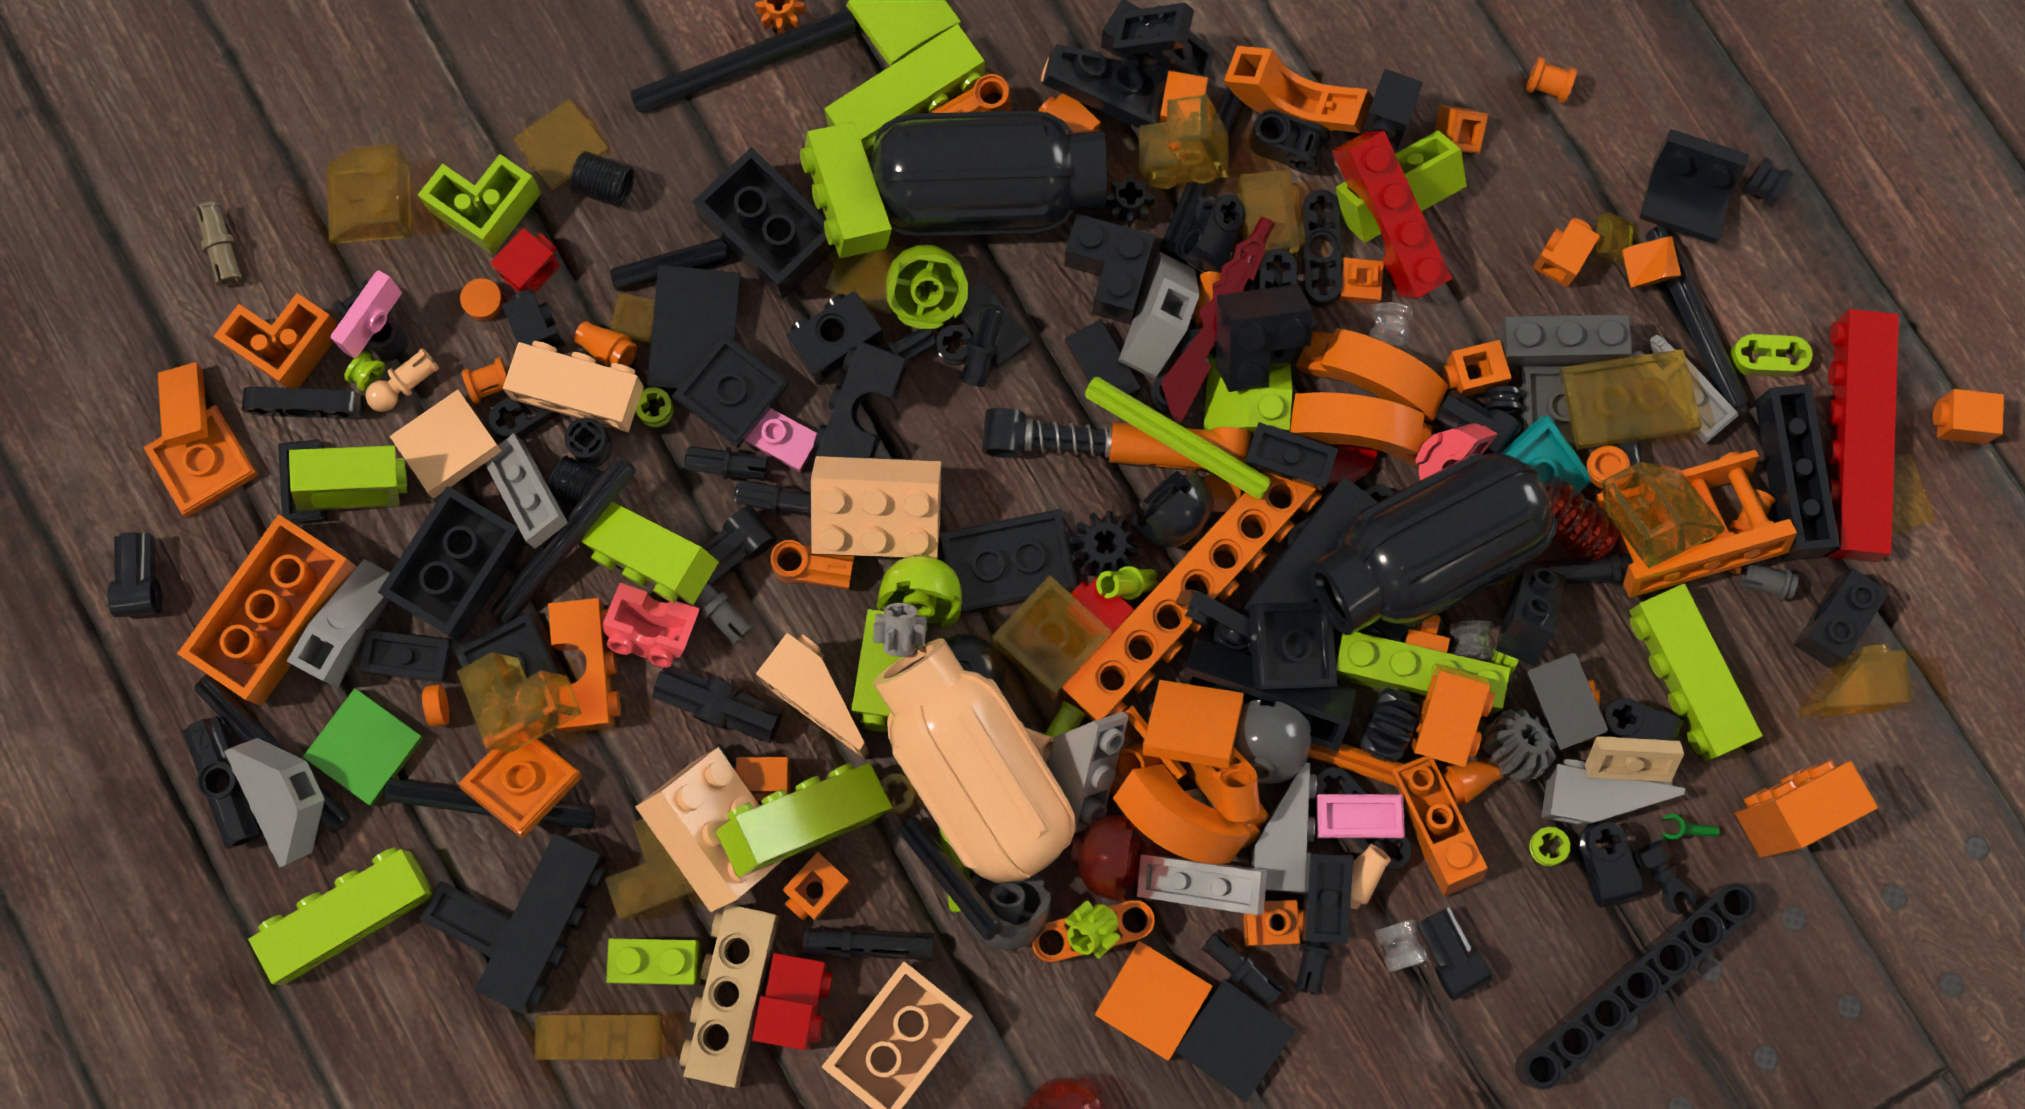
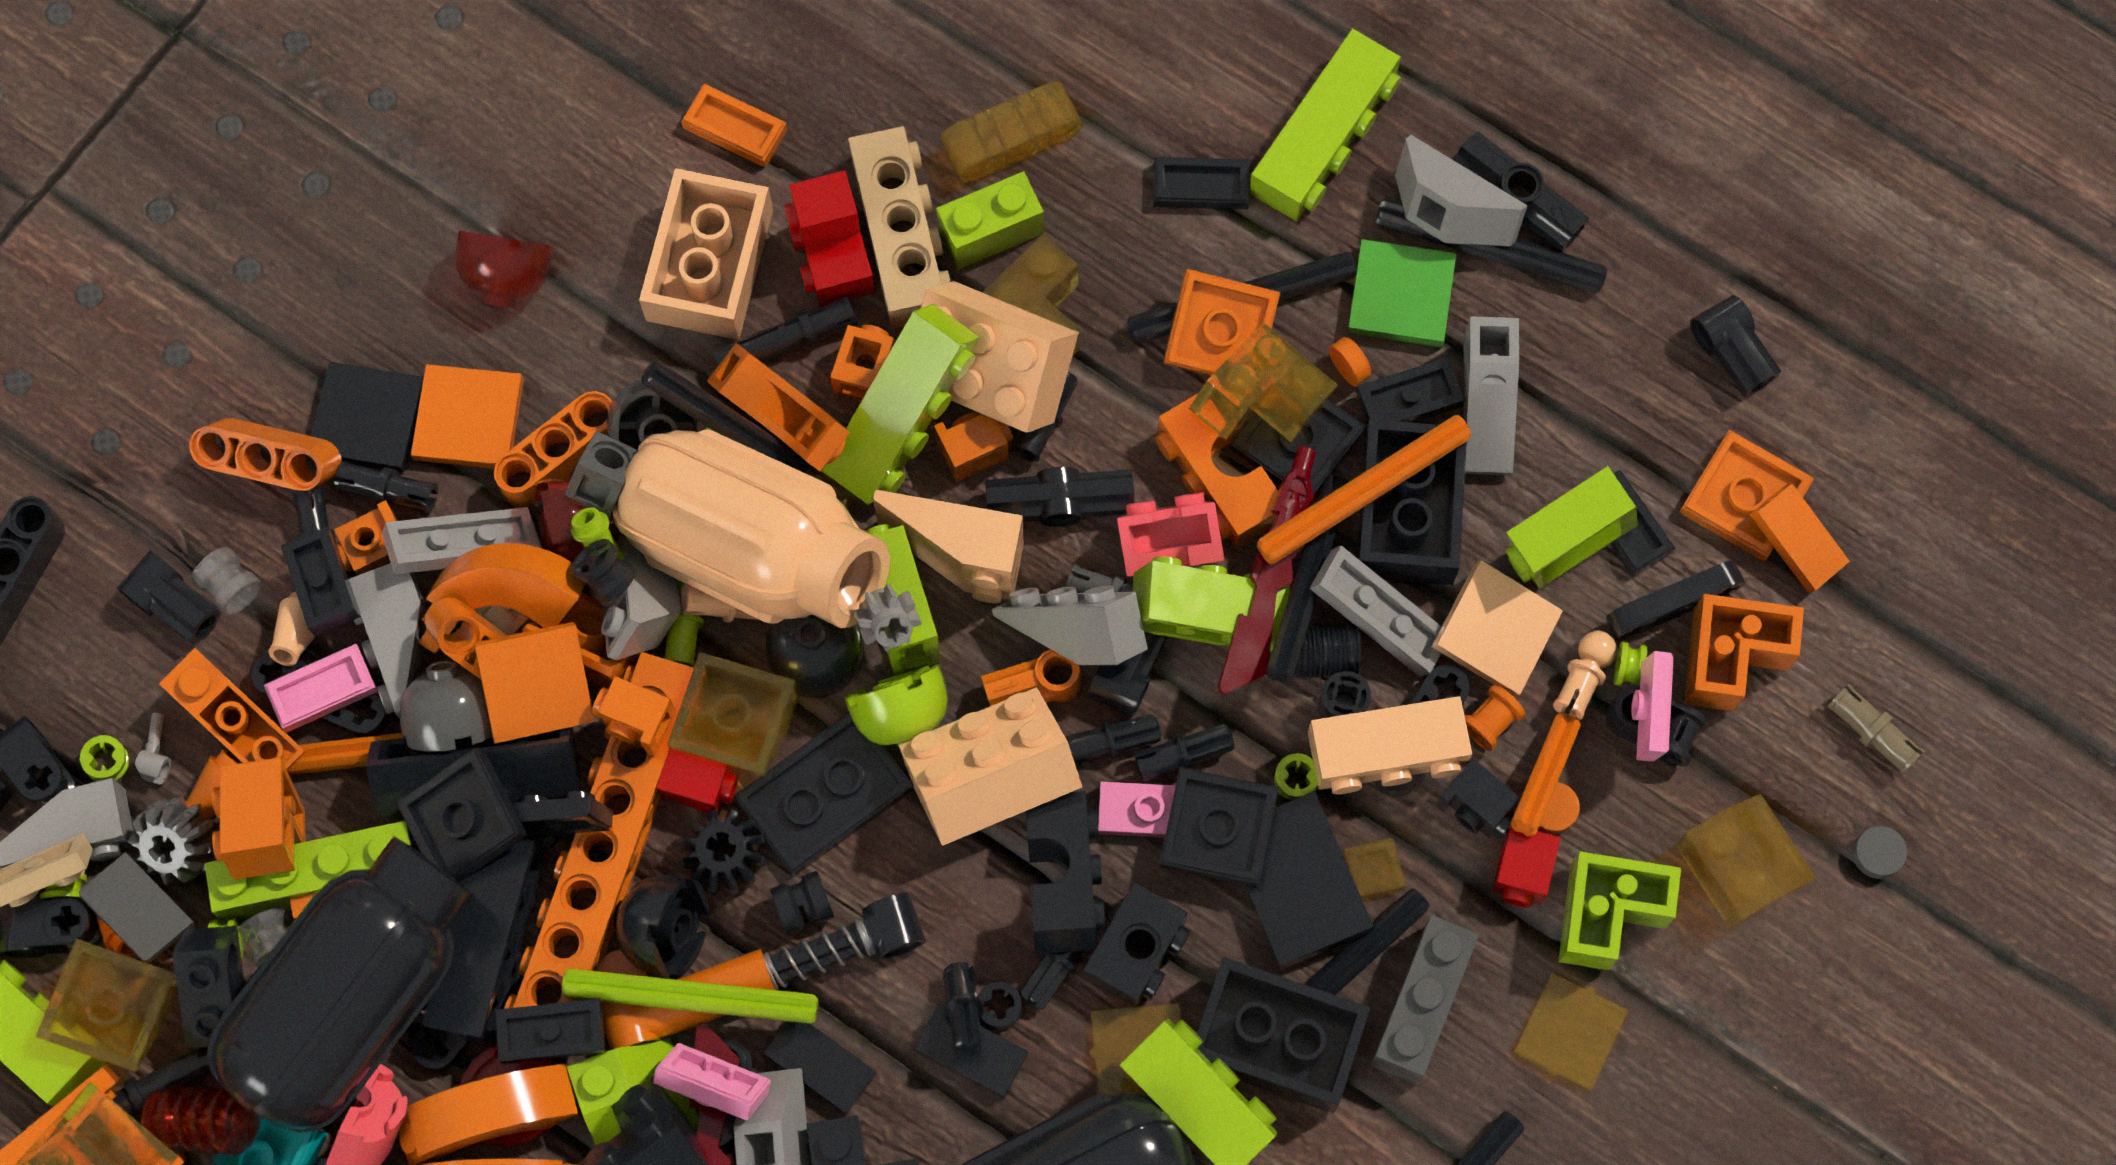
camera: 155 degrees right, 5 degrees down
(266, 610) = (1573, 369): orange brick -> none
(271, 161) = (1879, 852): none -> dark grey tile
(473, 316) = (1545, 774): none -> orange axle
(483, 575) = (1363, 489): none -> orange axle
(542, 924) = (1122, 207): black brick -> none
(589, 552) = (1252, 635): none -> dark red sword
(601, 179) = (1496, 1003): black piece -> none
(606, 344) = (1385, 817): orange cone -> none
(650, 203) = (1424, 1000): none -> dark grey brick
(756, 581) = (1082, 627): none -> light grey slope
(896, 872) = (779, 407): none -> orange arch
(926, 286) = (1060, 1046): lime cylinder -> none
(1063, 481) = (802, 903): none -> black wheel
(1080, 865) = (600, 473): none -> dark grey brick
(1092, 929) = (551, 431): lime gear -> none
(1094, 815) = (593, 529): none -> lime pin
(1111, 790) = (602, 570): none -> black wheel
(1127, 582) = (675, 814): lime axle -> none
(1127, 665) = (634, 713): none -> orange brick
(1188, 366) = (712, 1081): none -> bright pink plate
(1330, 1037) = (245, 460): none -> orange beam
(1390, 724) = (324, 796): black gear -> none
(1515, 823) = (148, 762): none -> light grey hand
(1613, 634) = (108, 1005): none -> clear yellow slope

